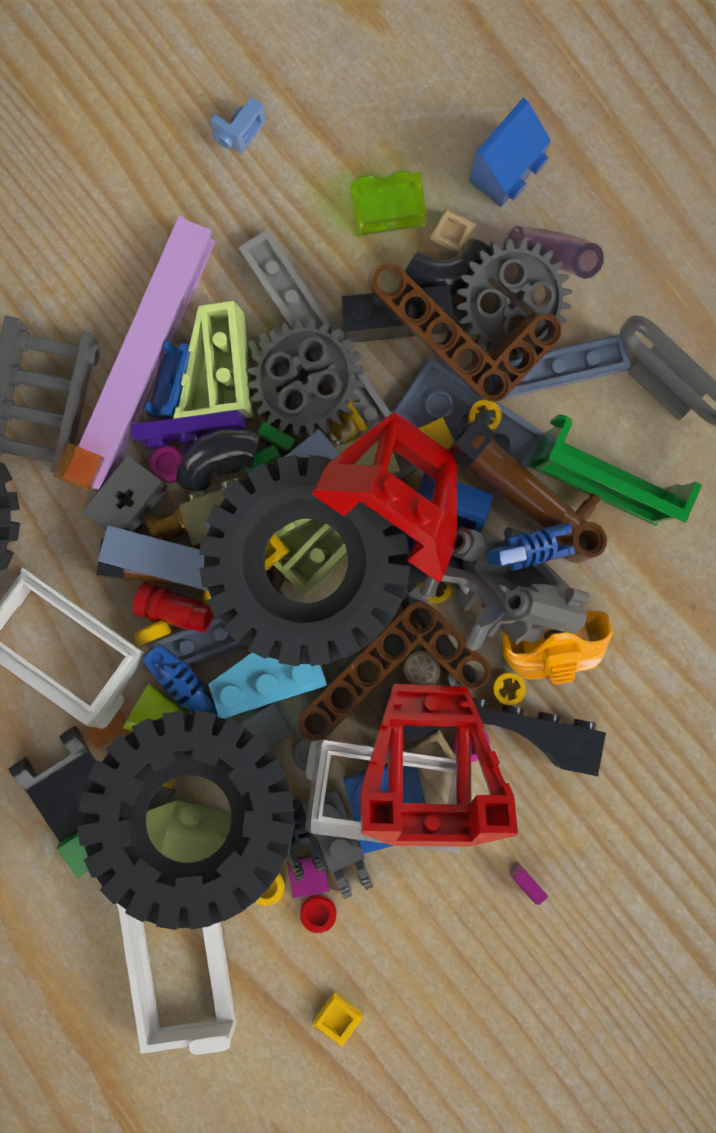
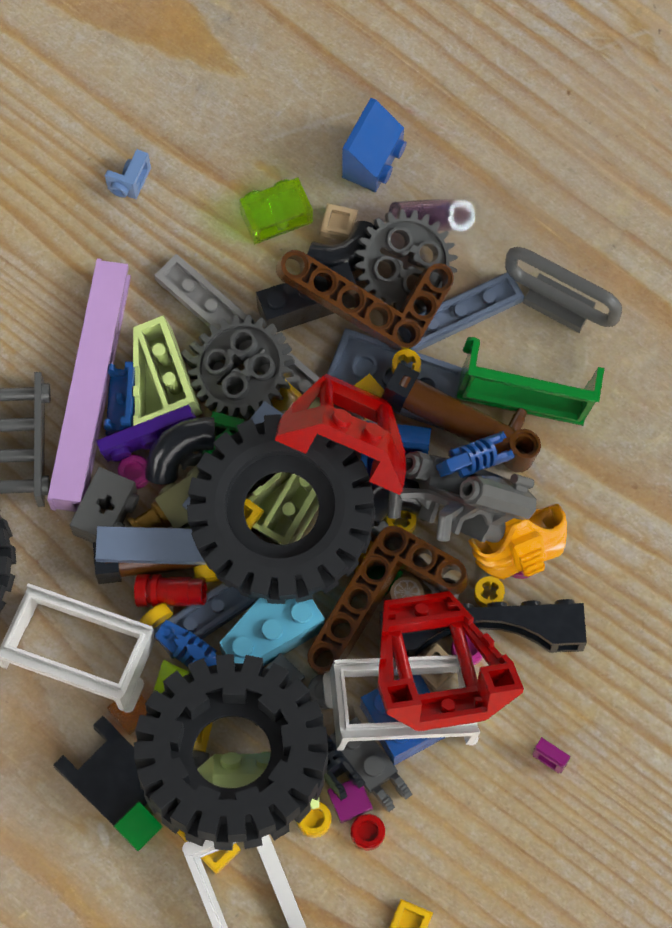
camera: 10 degrees left, 15 degrees down
(79, 467) = (59, 485): clear orange tile -> none

